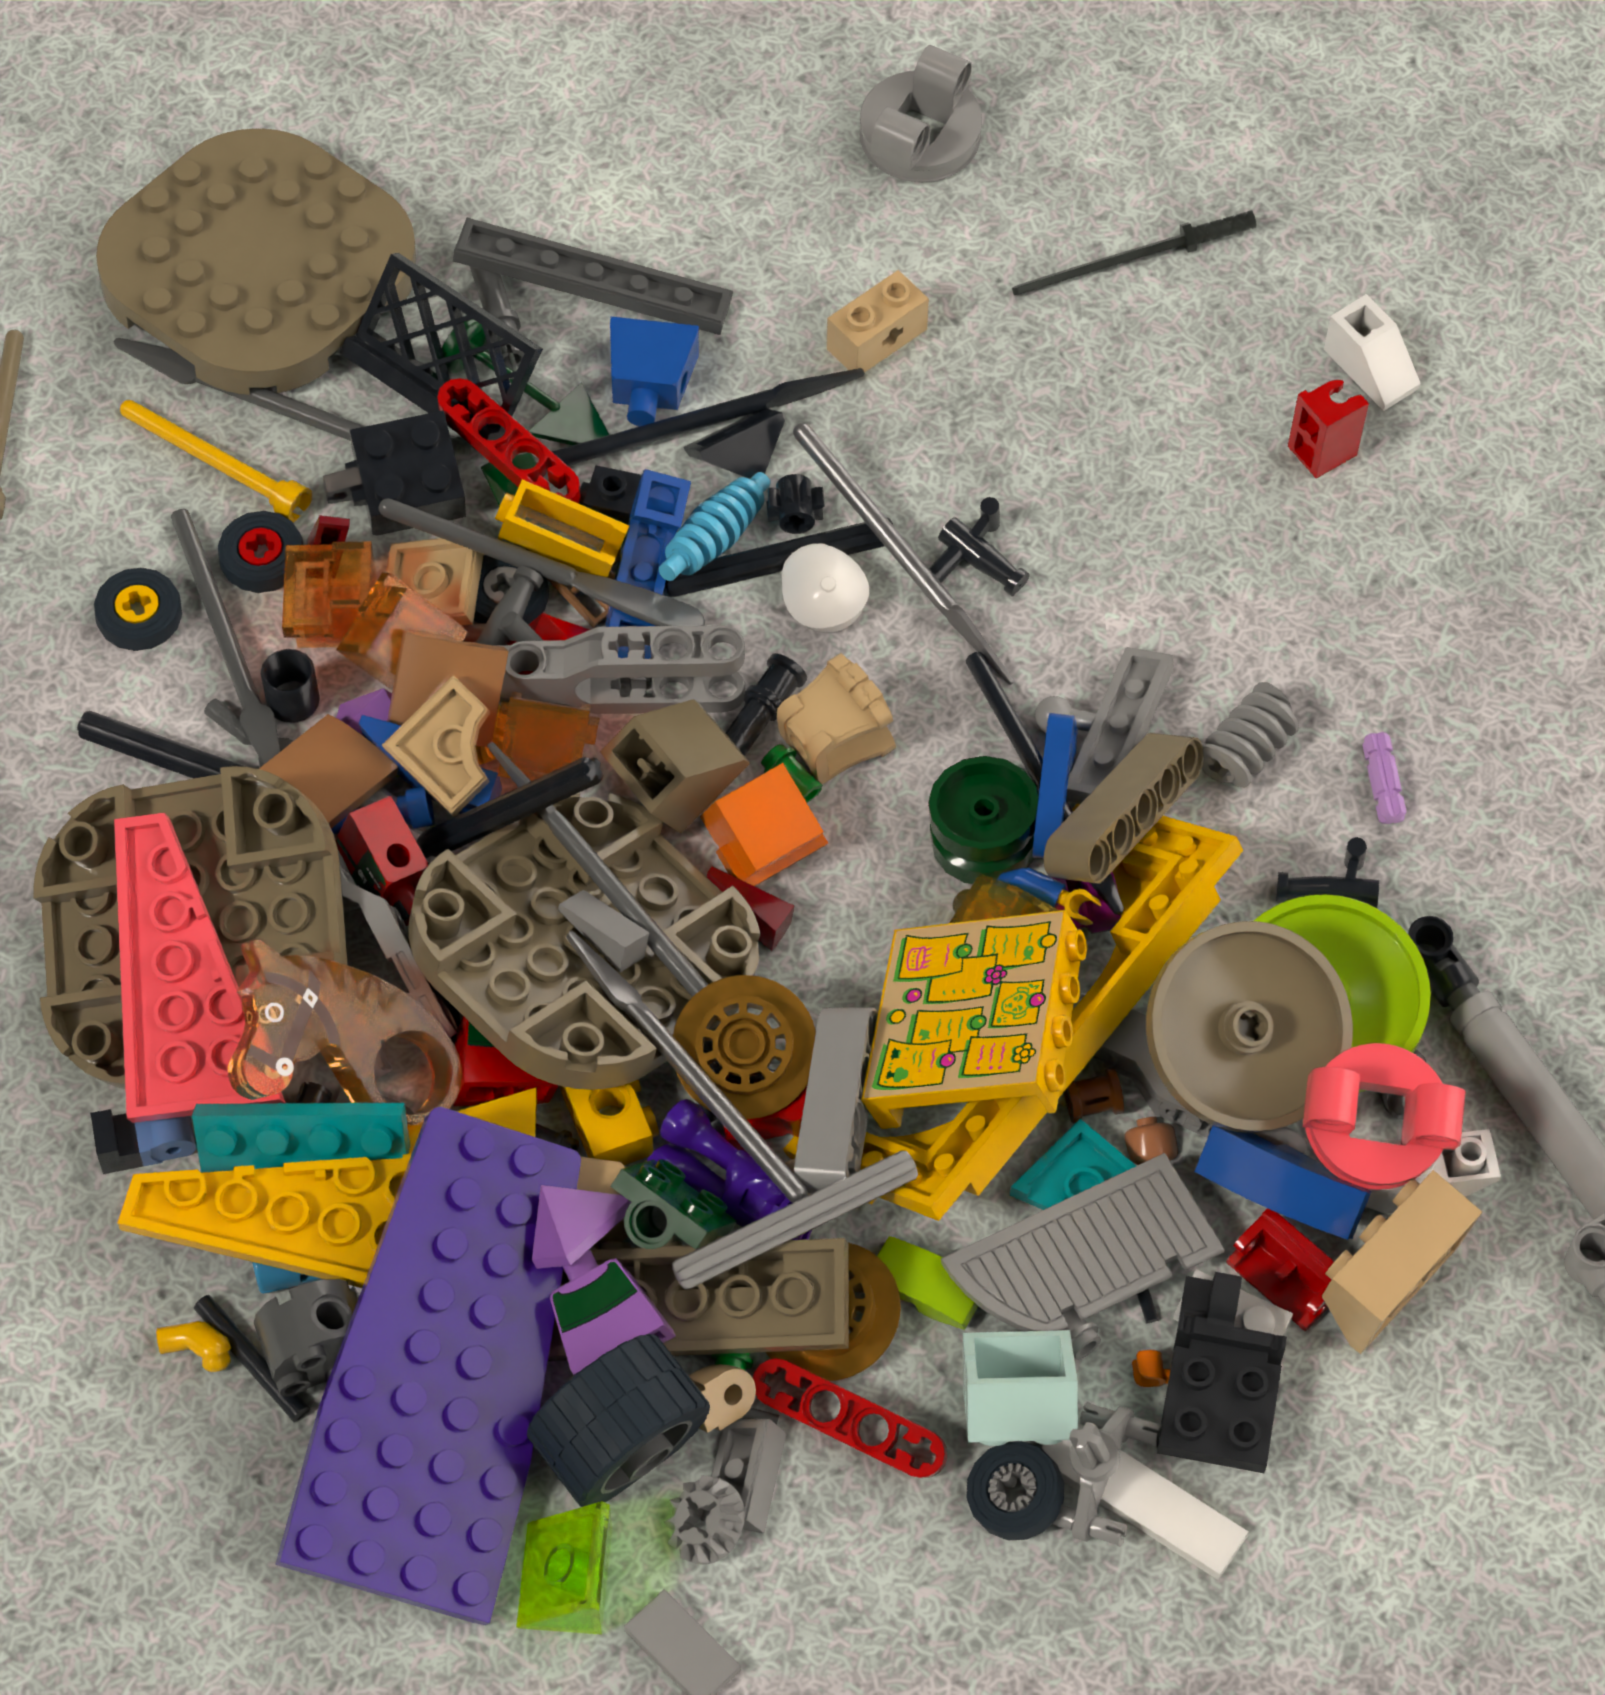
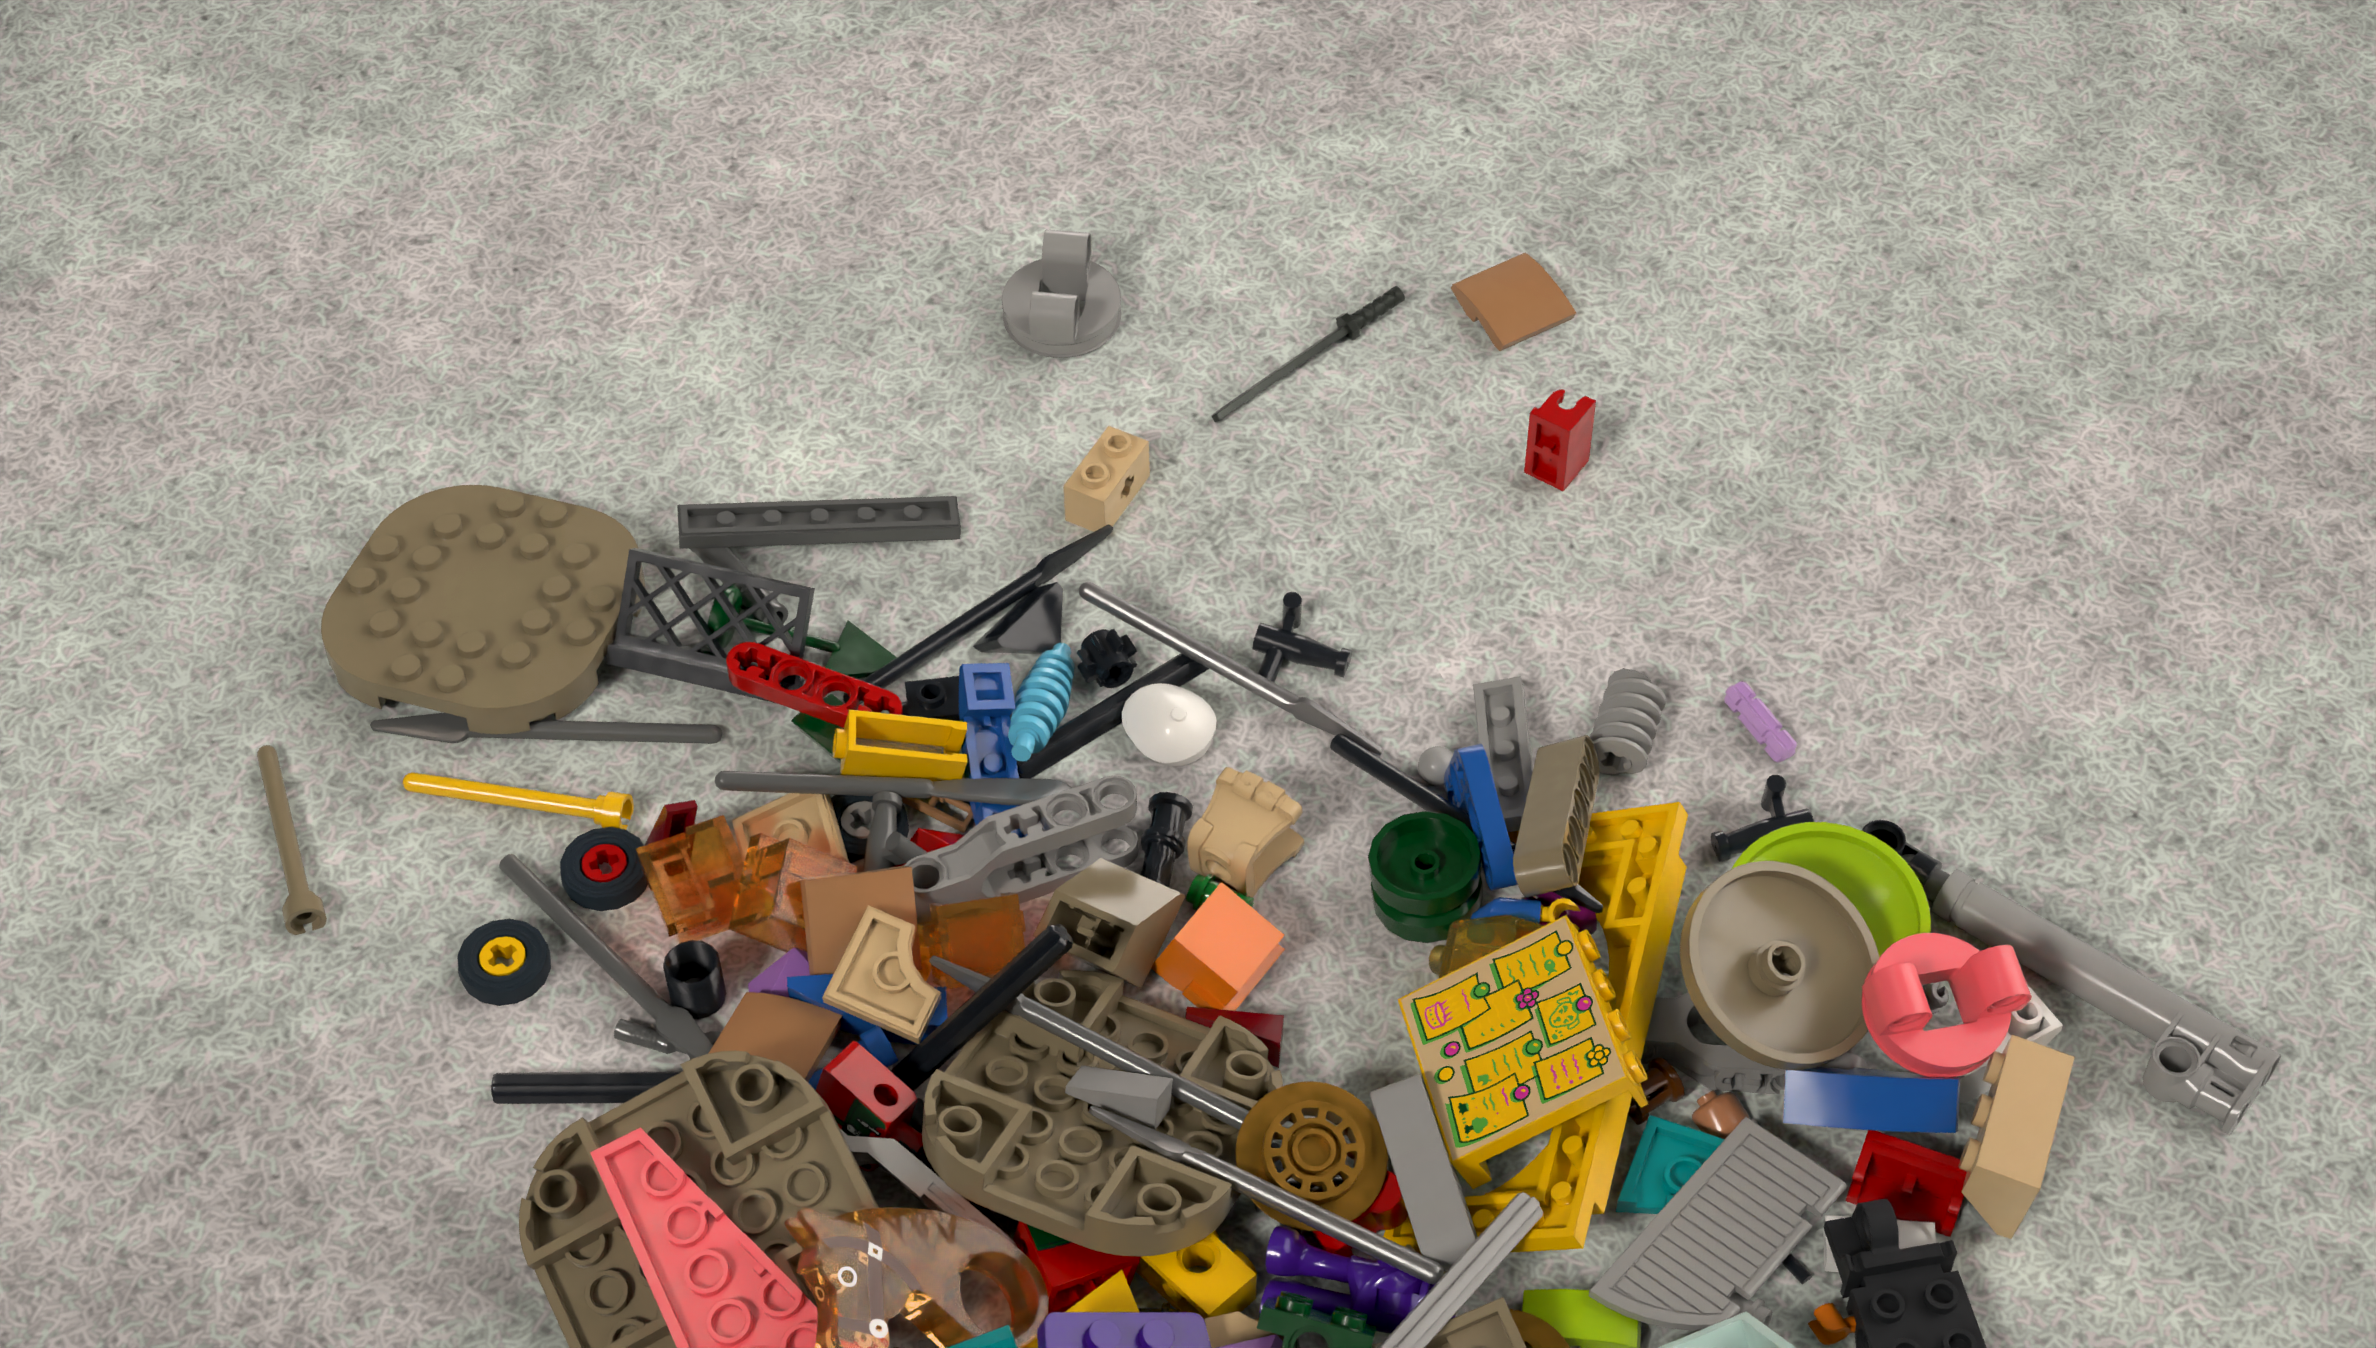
camera: 20 degrees left, 10 degrees down
(401, 462) = (712, 735): black hinge -> none
(651, 365) = (908, 582): blue torso -> none
(1363, 260) = (1513, 301): none -> medium nougat slope
(1371, 352) = (1560, 359): white slope -> none

